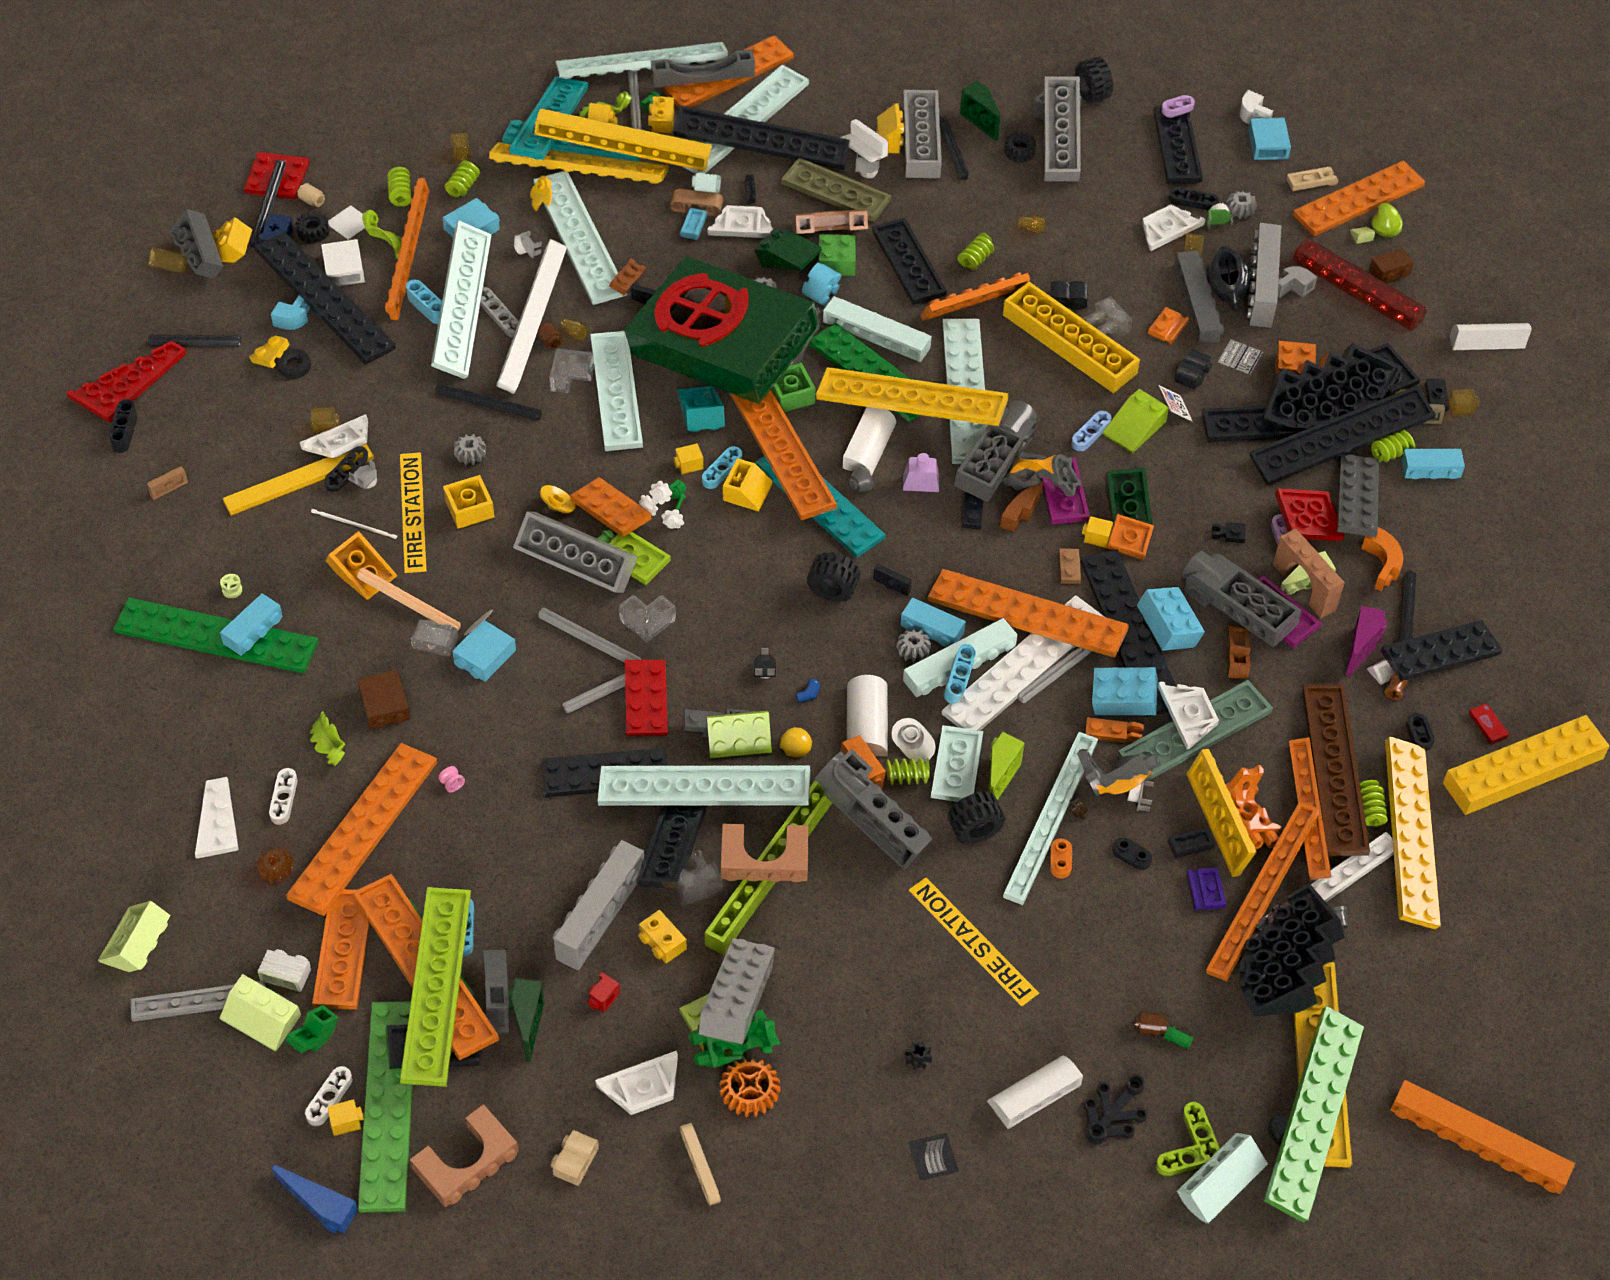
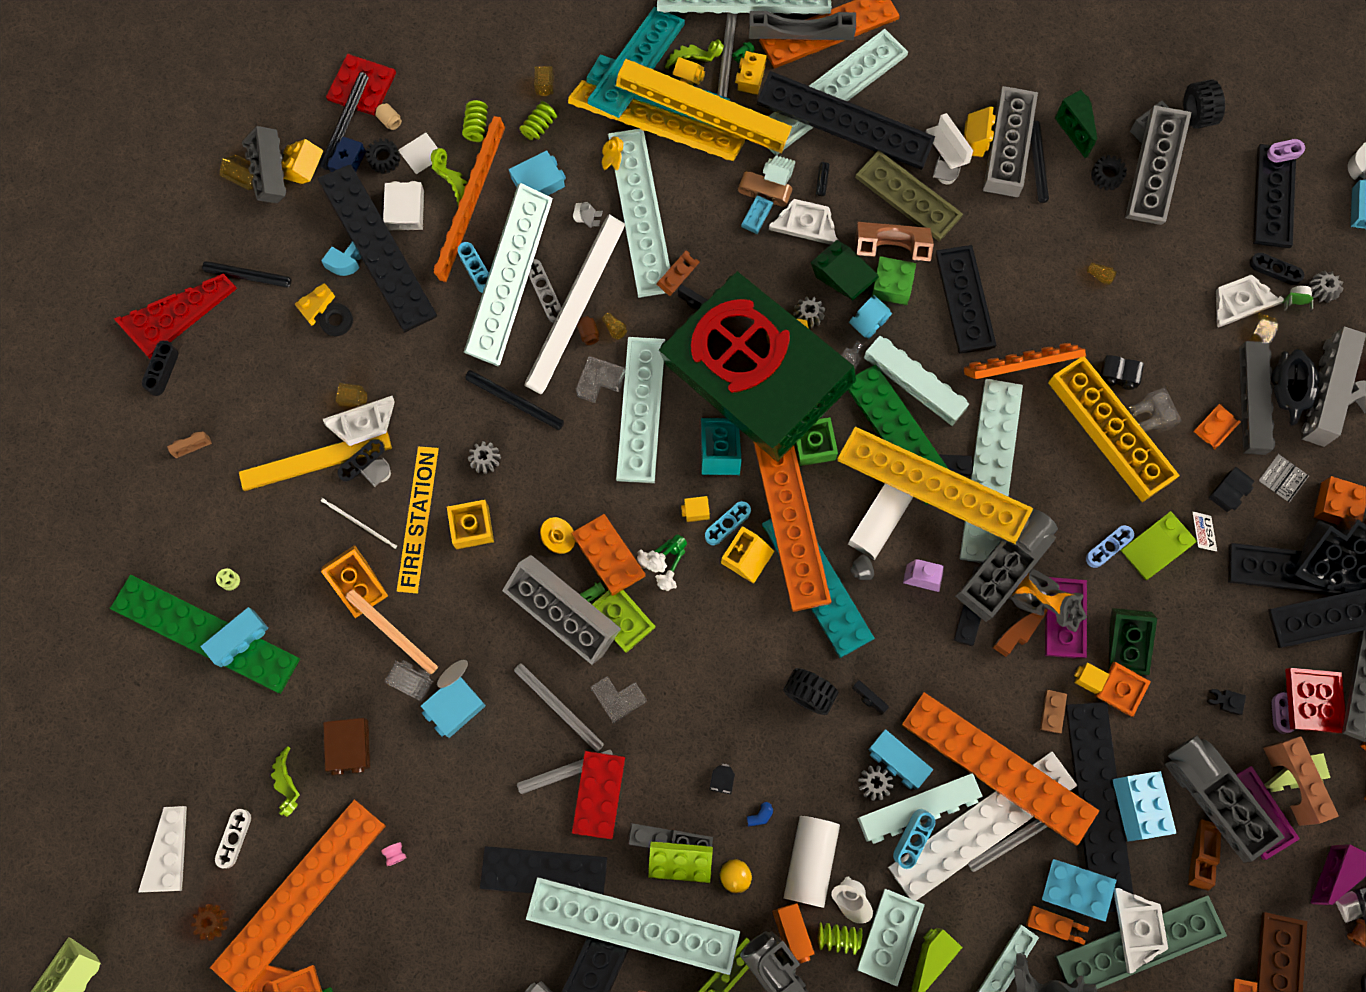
camera: 15 degrees right, 20 degrees up
(976, 252) = (1037, 301): lime piece -> none

